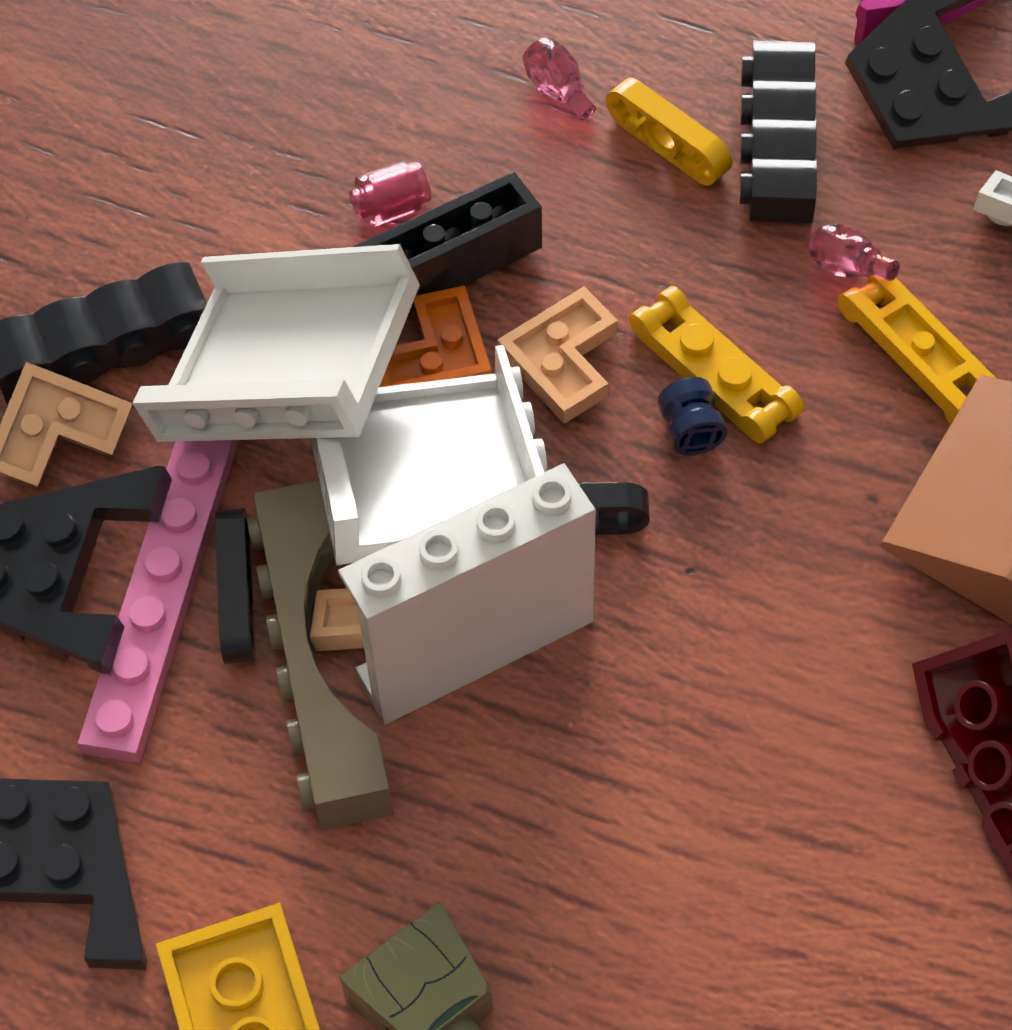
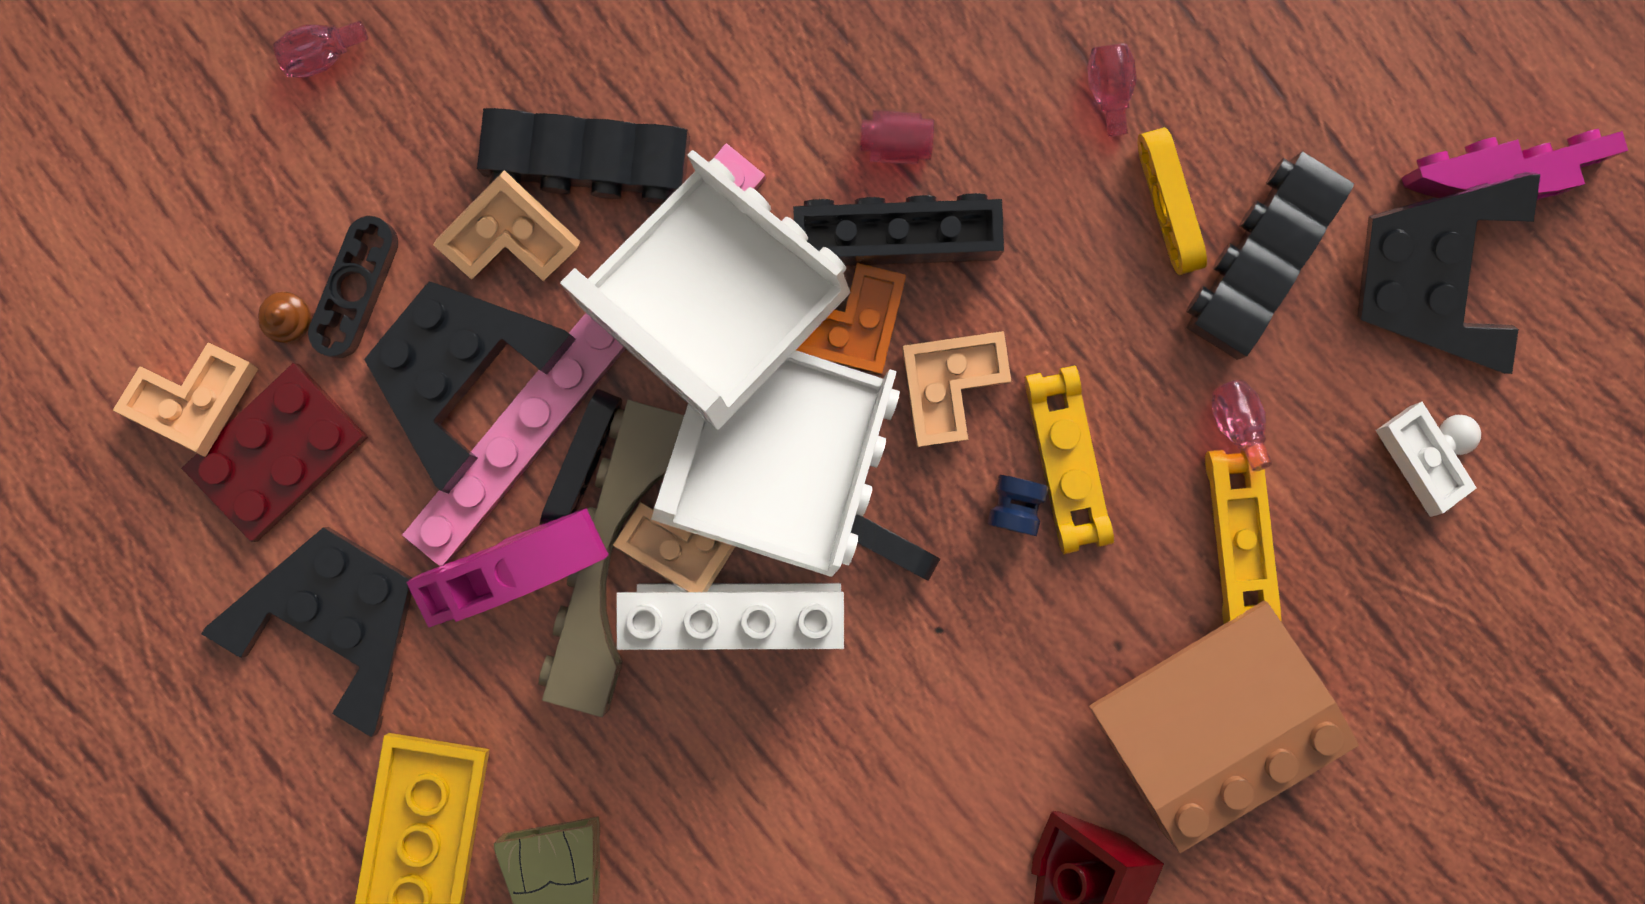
camera: 20 degrees right, 30 degrees up
(205, 698) = (508, 569): none -> dark pink slope

